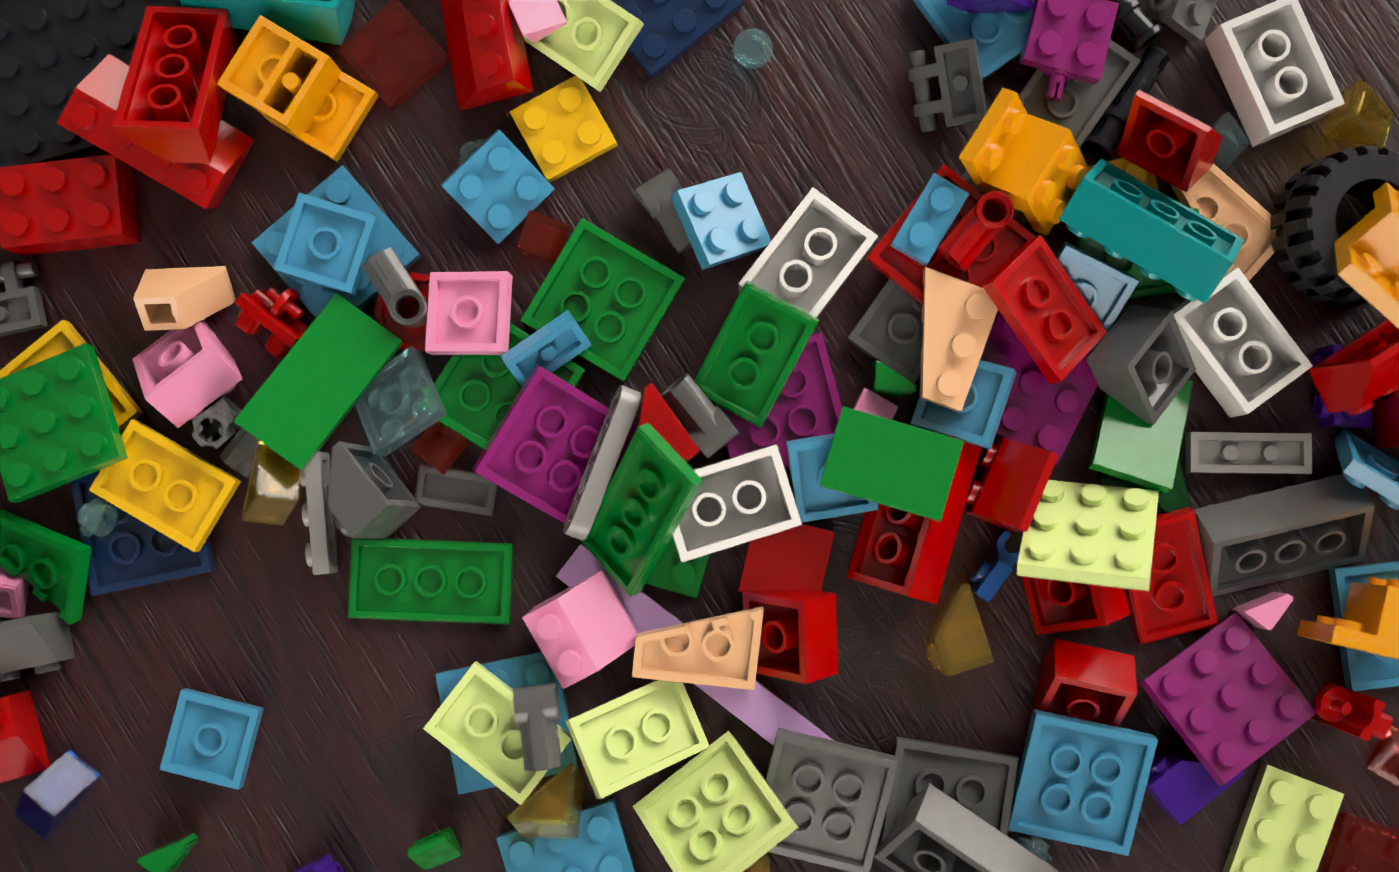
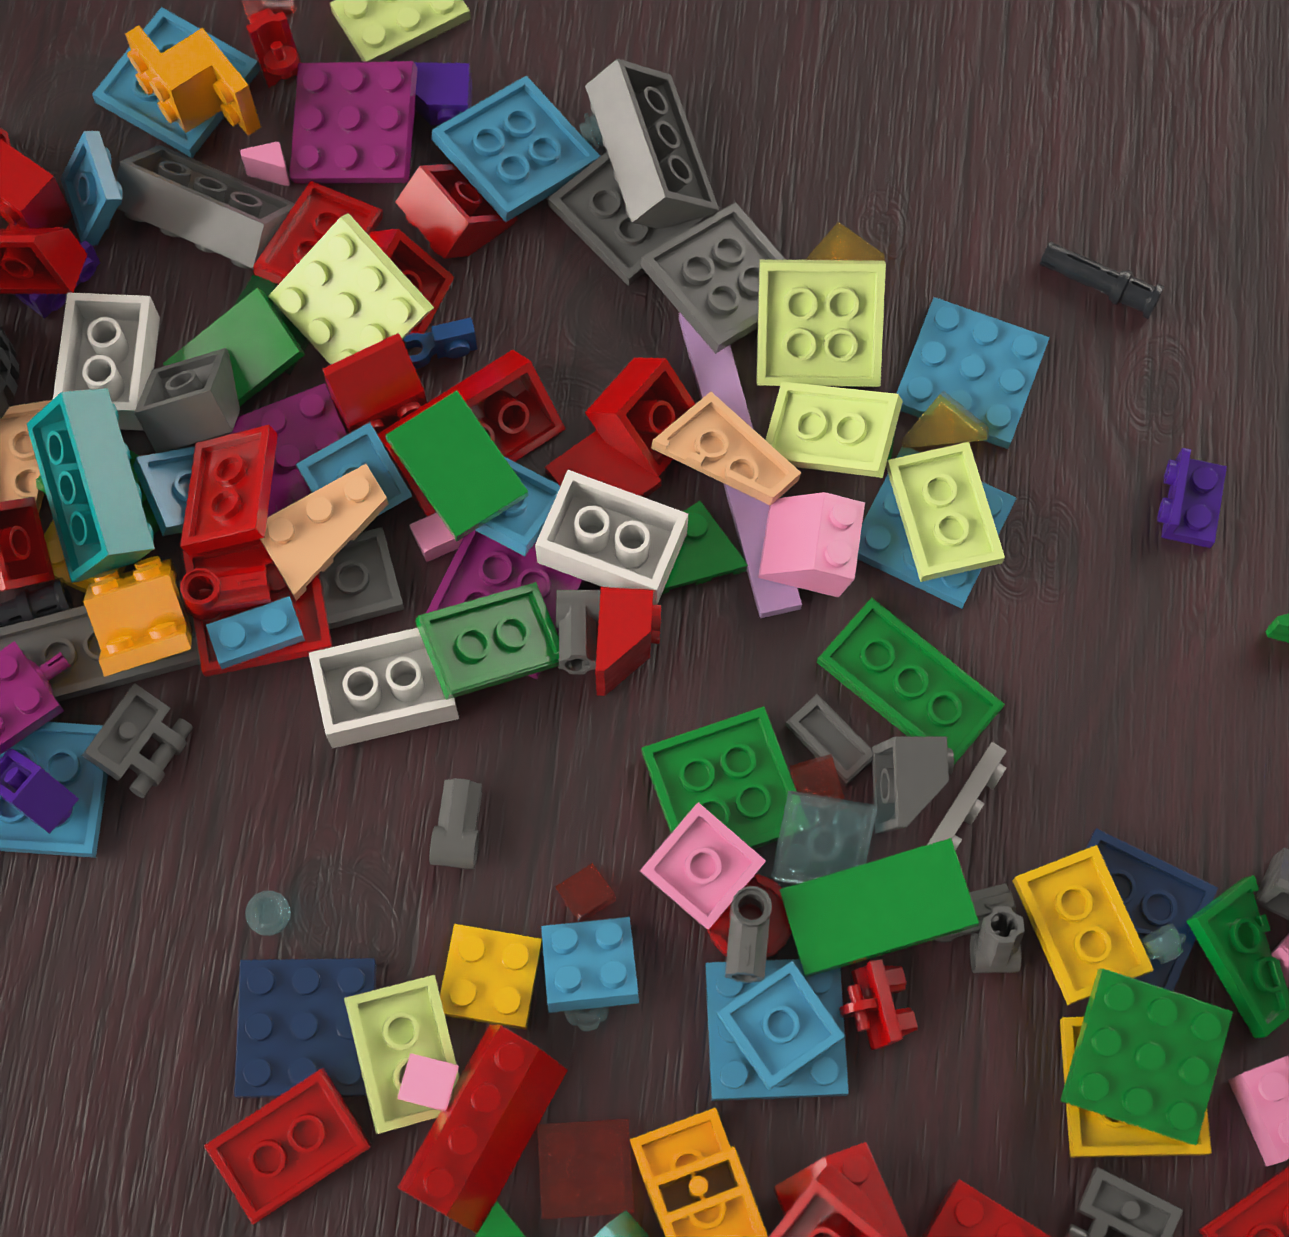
camera: 145 degrees left, 15 degrees down
(181, 296) = (947, 1088): light nougat slope -> none
(186, 372) = (992, 1023): bright pink slope -> none
(211, 738) = (1195, 694): dark azure plate -> none
(271, 488) = (990, 854): clear yellow slope -> none
(435, 849) = (1067, 474): green slope -> none
(537, 714) = (901, 491): dark grey piece -> none
(545, 443) = (718, 699): magenta plate -> none
(547, 347) = (661, 781): dark azure plate -> none
(602, 463) = (689, 653): light grey beam -> none
(610, 293) = (578, 797): green plate -> none
(641, 509) = (688, 582): green tile -> none
(721, 220) = (423, 779): plate -> none
(888, 382) = (402, 543): green slope -> none
(958, 635) = (514, 318): clear yellow slope -> none
(1248, 453) = (171, 280): light grey plate -> none

